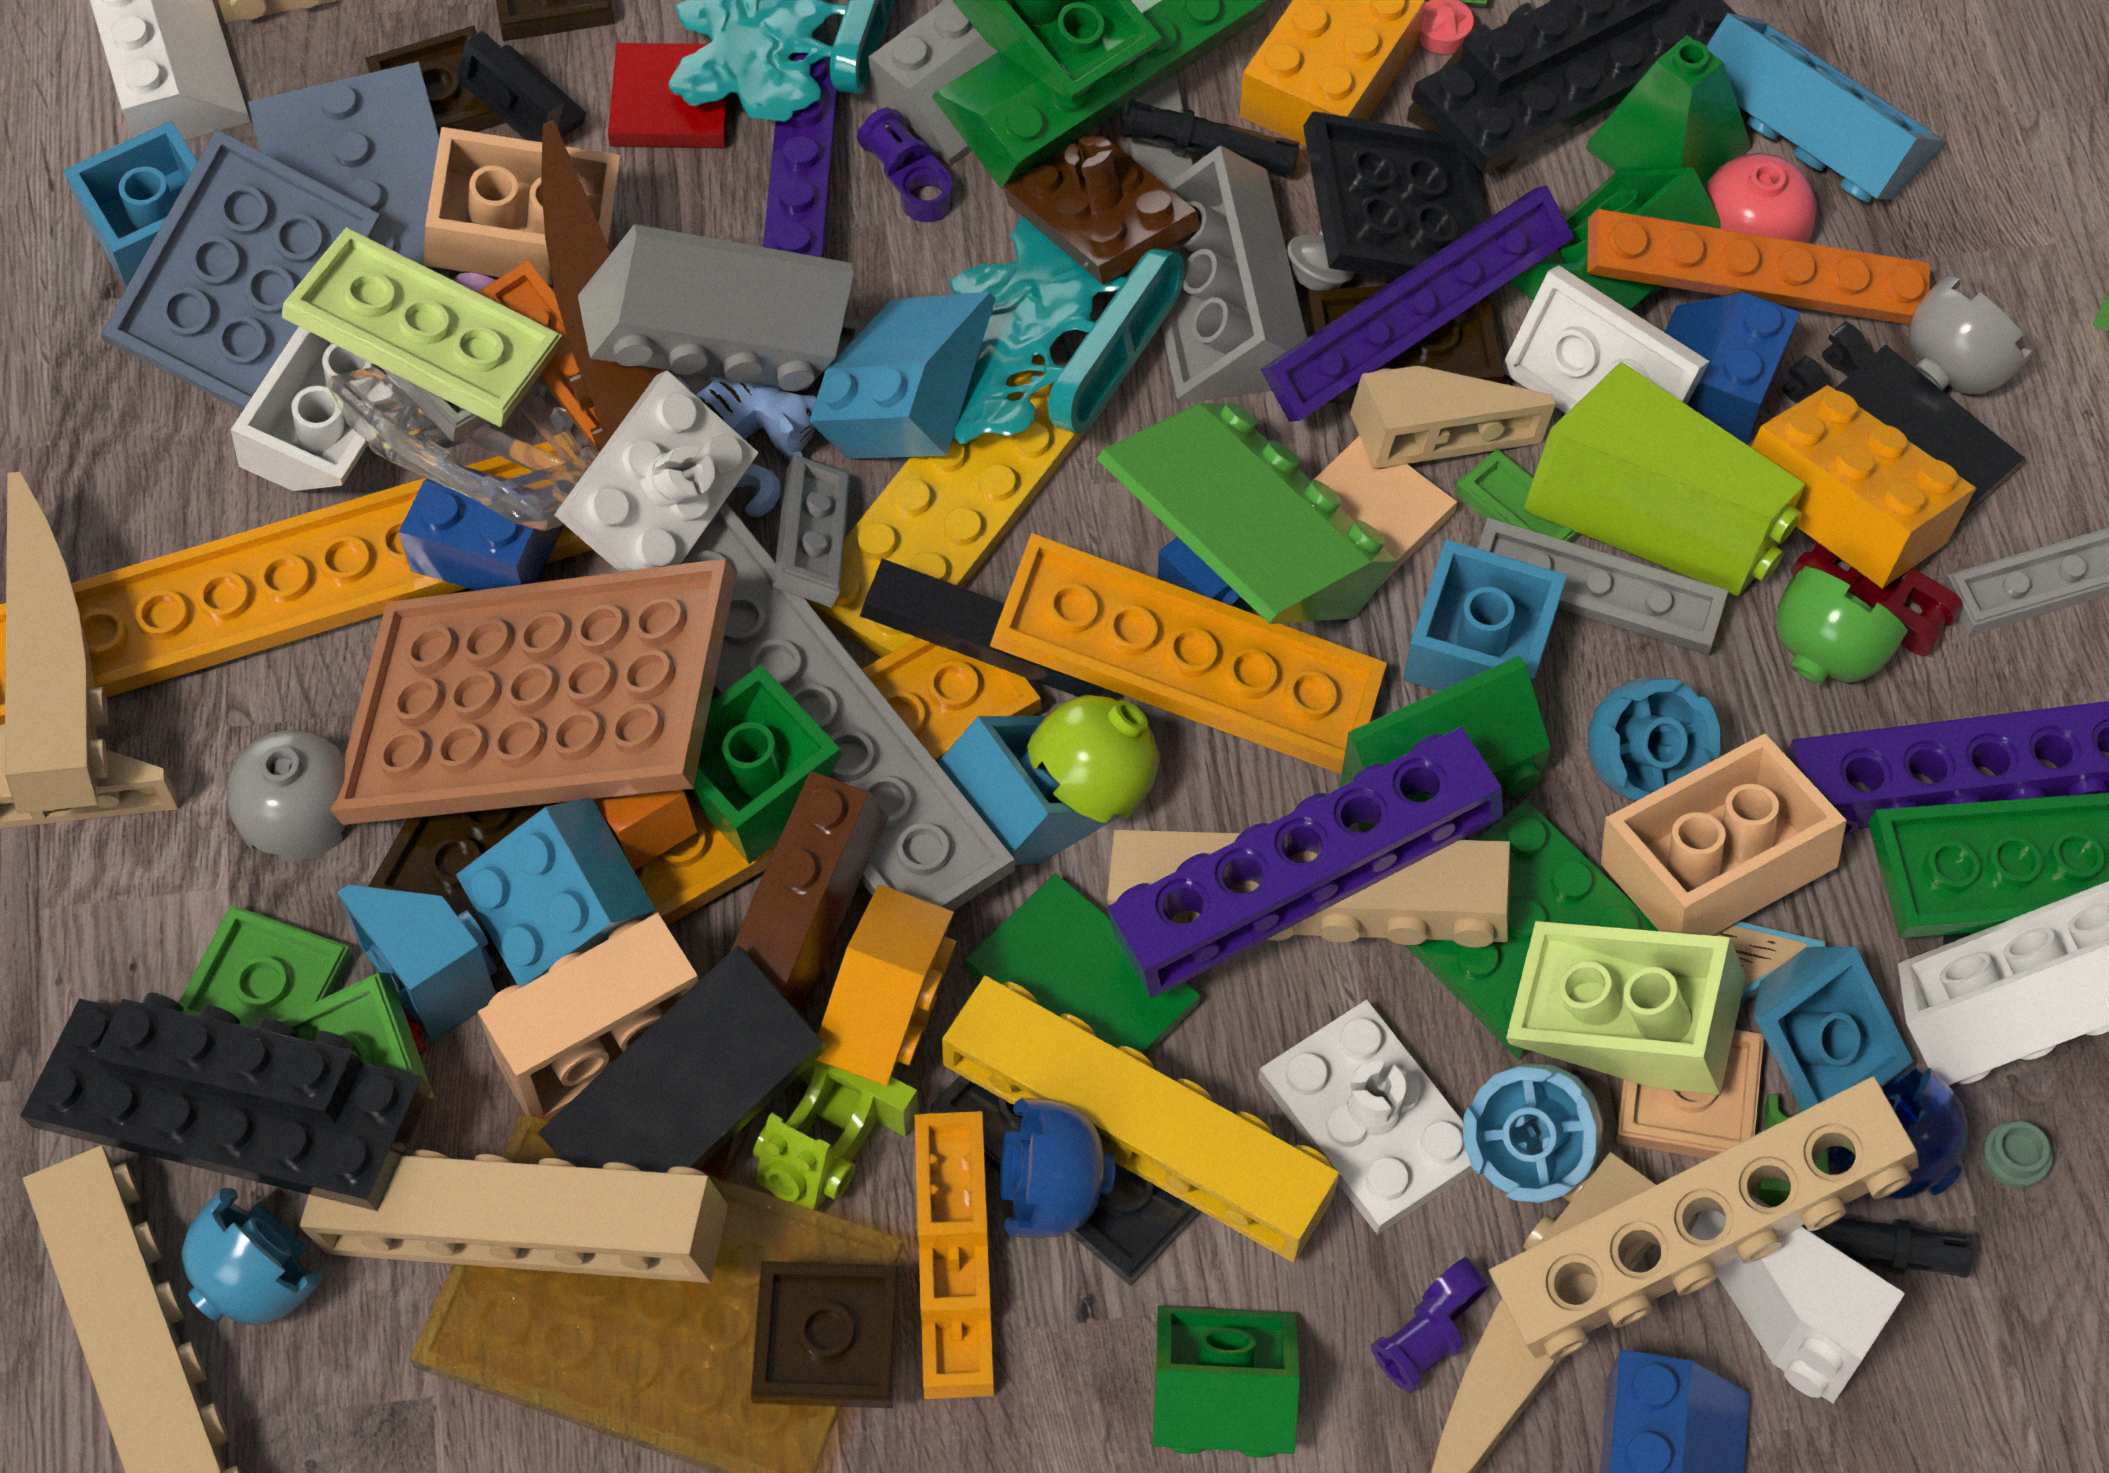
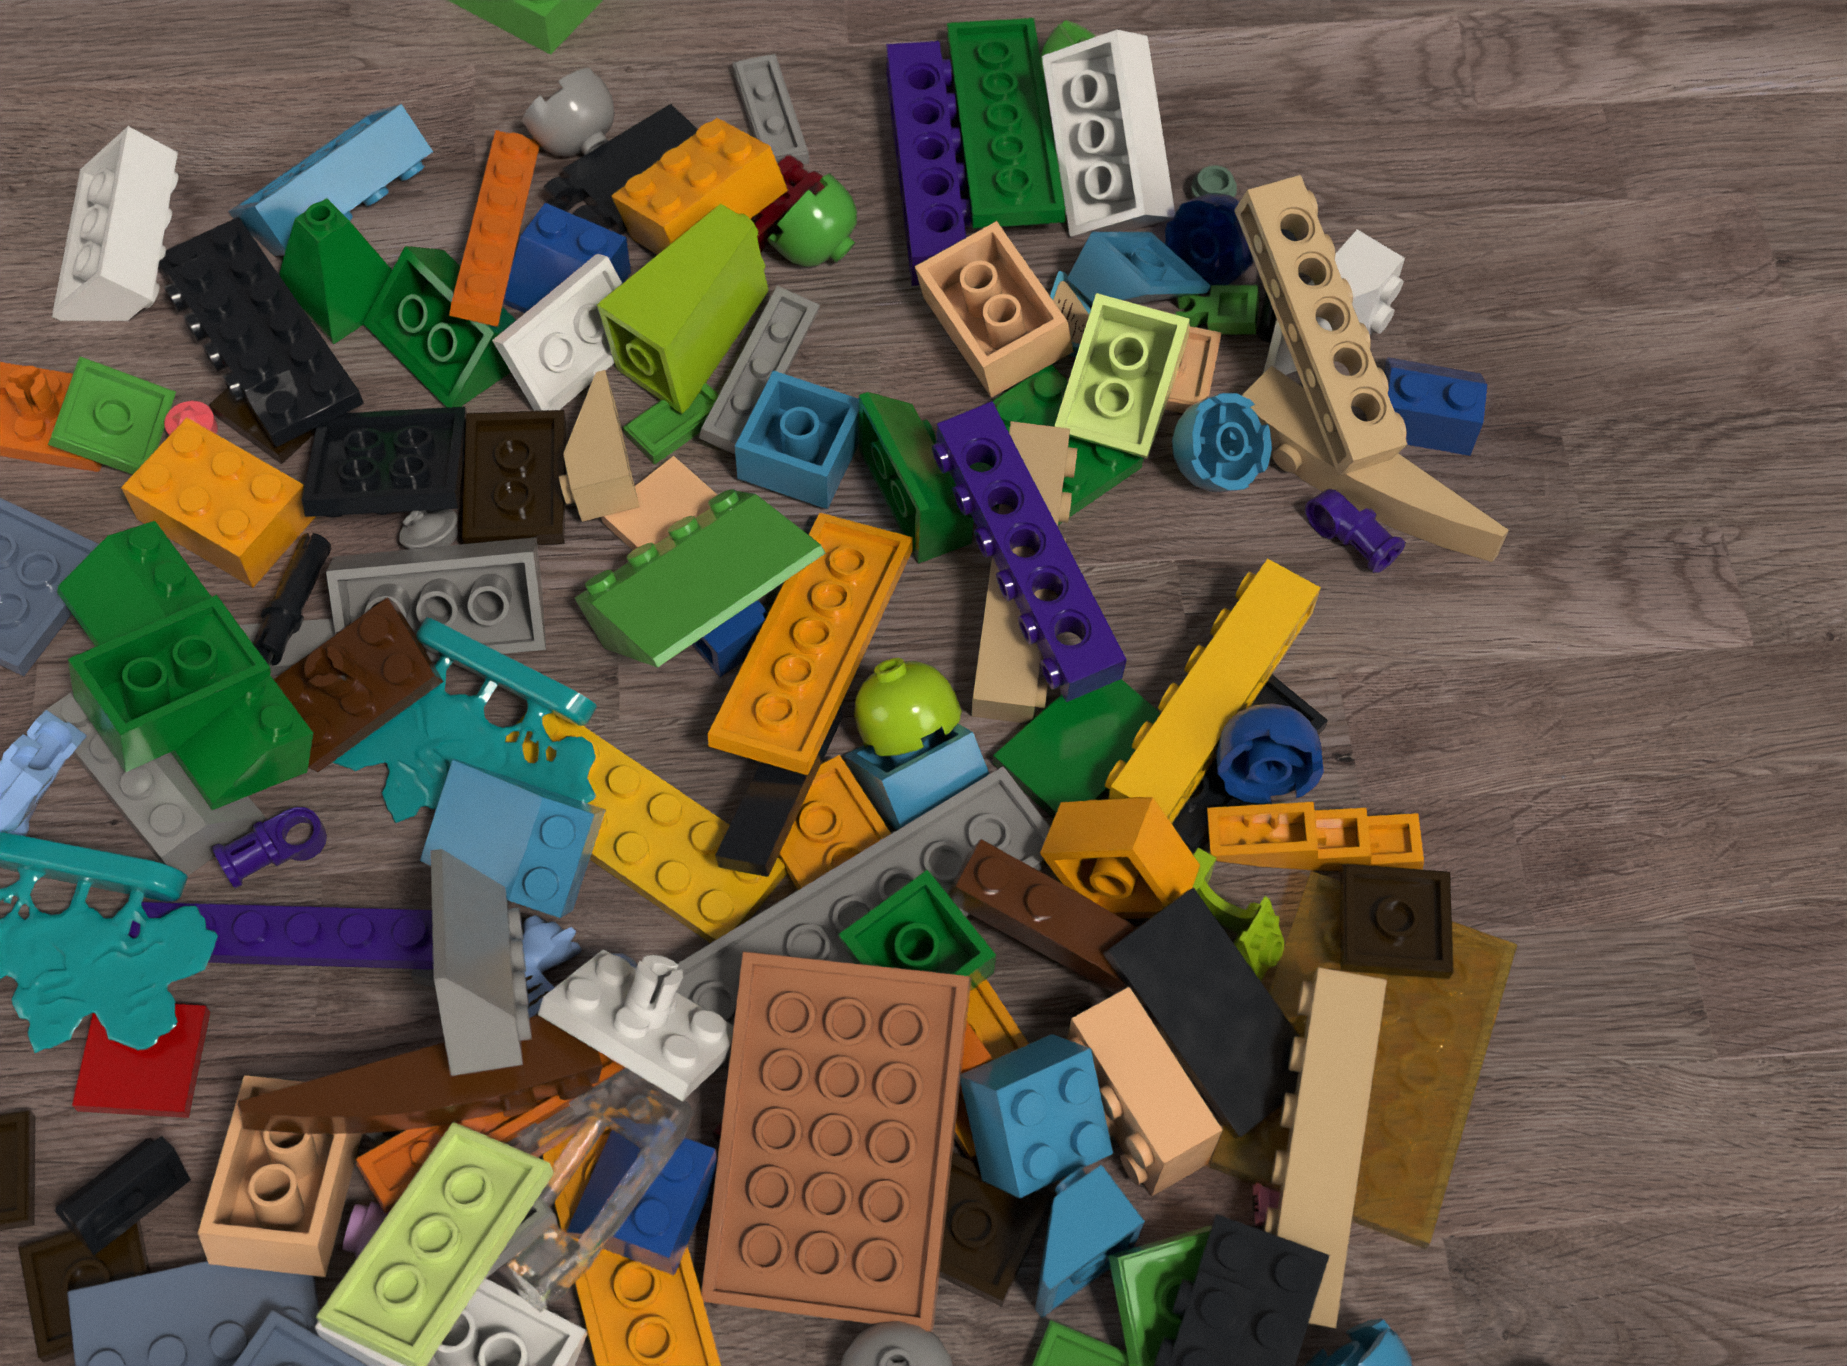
camera: 90 degrees left, 0 degrees up
(812, 531) = (669, 921): light grey tile -> none
(1226, 1381) = (1404, 659): green slope -> none
(1371, 1115) = (1189, 559): white plate -> none
(1416, 304) = (500, 453): dark purple plate -> none
(1651, 735) = (905, 346): dark azure cylinder -> none
(1764, 197) = (423, 219): coral cylinder -> none

